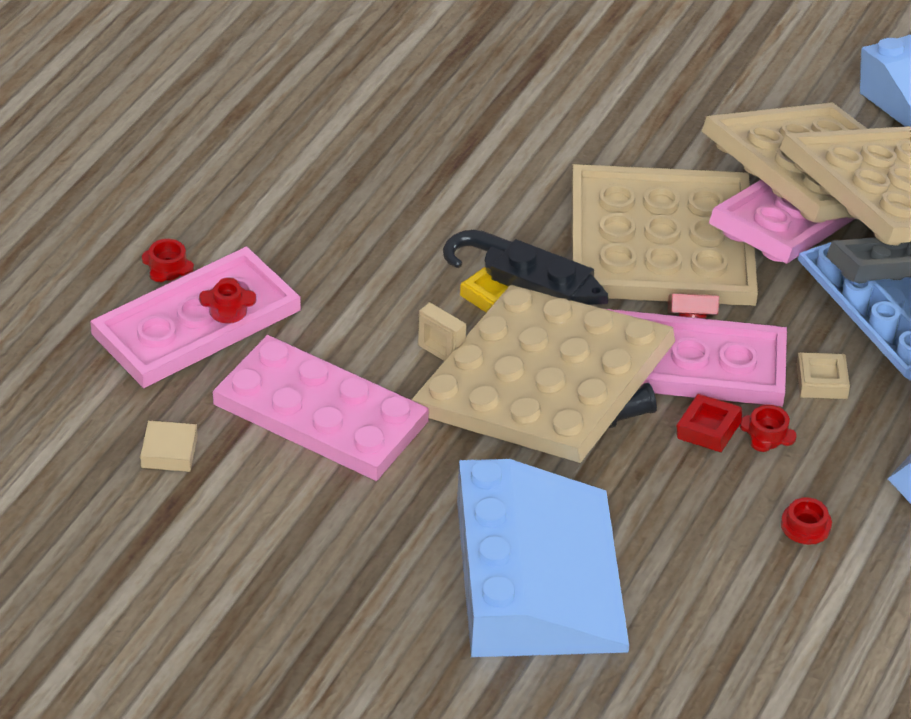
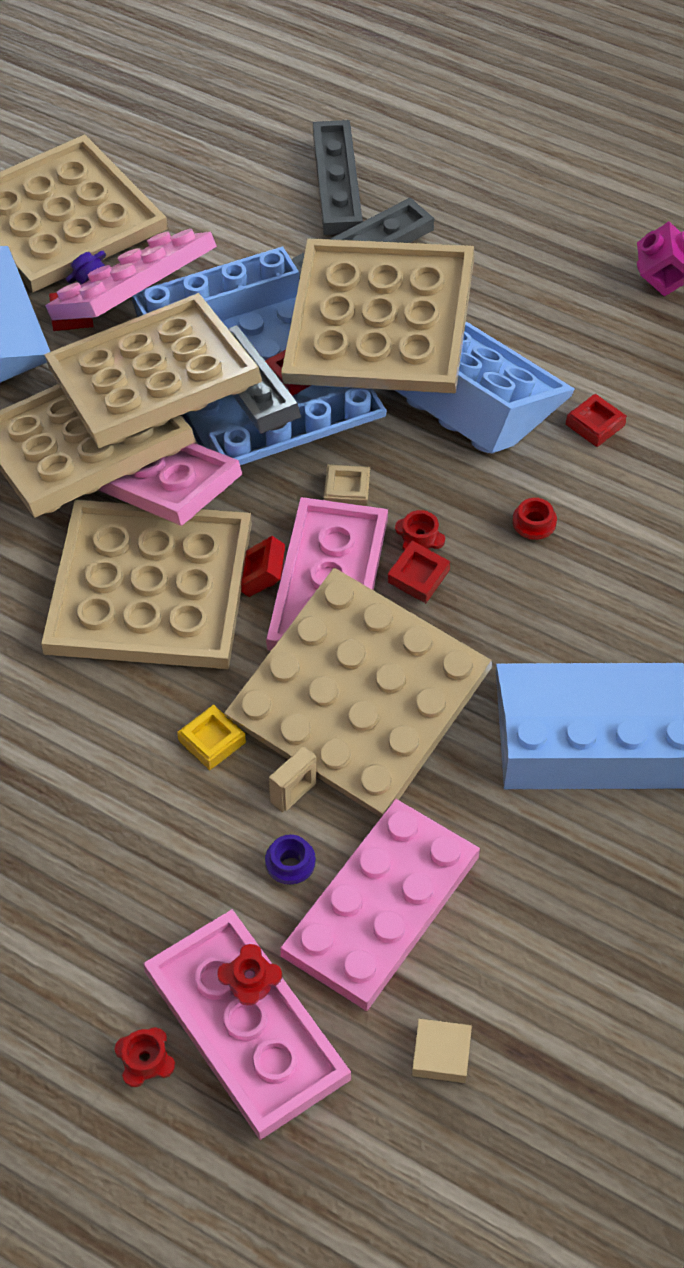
camera: 85 degrees left, 10 degrees up
(360, 340) = (290, 847): none -> dark purple plate
(529, 267) = (206, 693): black plate -> none

